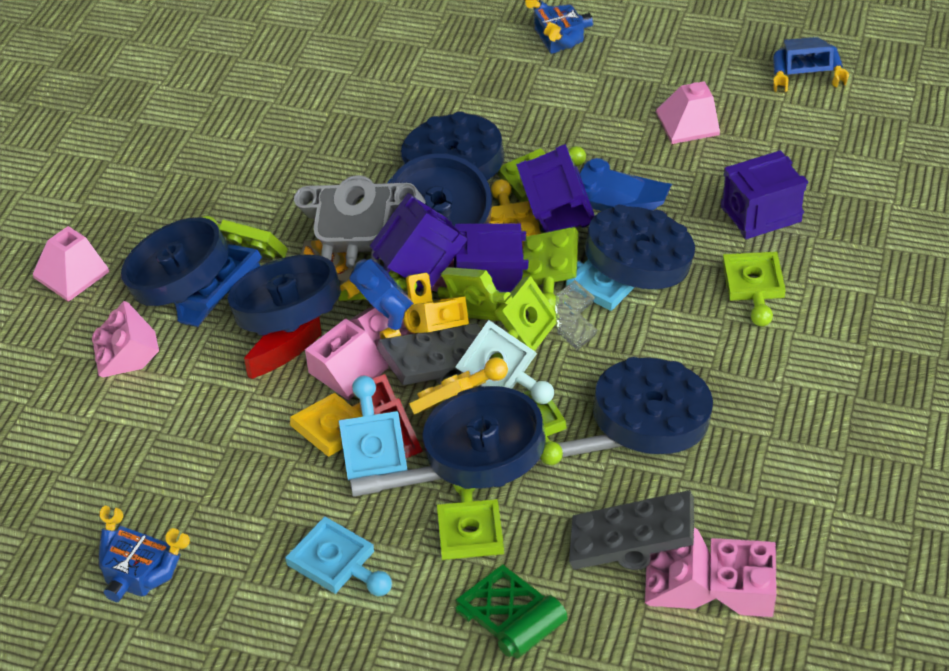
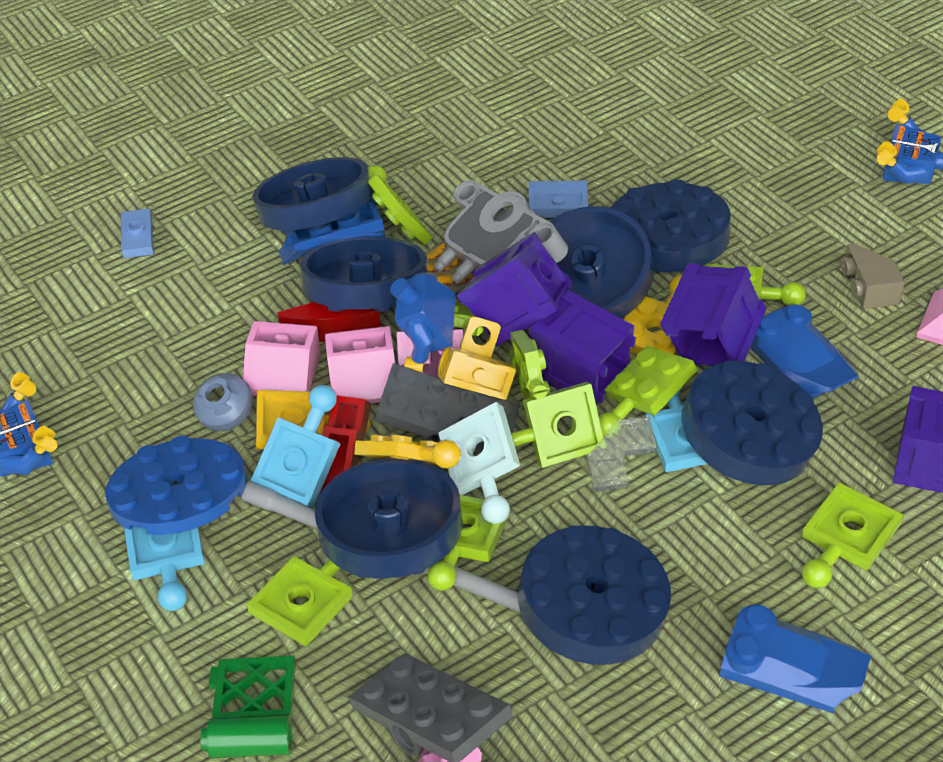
camera: 40 degrees right, 0 degrees up
(46, 369) = (136, 233): none -> medium blue plate
(69, 264) = (240, 152): bright pink slope -> none
(123, 342) = (210, 243): bright pink slope -> none
(270, 454) = (230, 409): none -> sand blue piece
(279, 388) = (281, 357): none -> bright pink slope
(283, 537) = (207, 480): none -> blue plate
(353, 166) = (556, 197): none -> medium blue plate
(613, 118) = (872, 277): none -> dark tan slope
(797, 372) = (792, 660): none -> blue slope

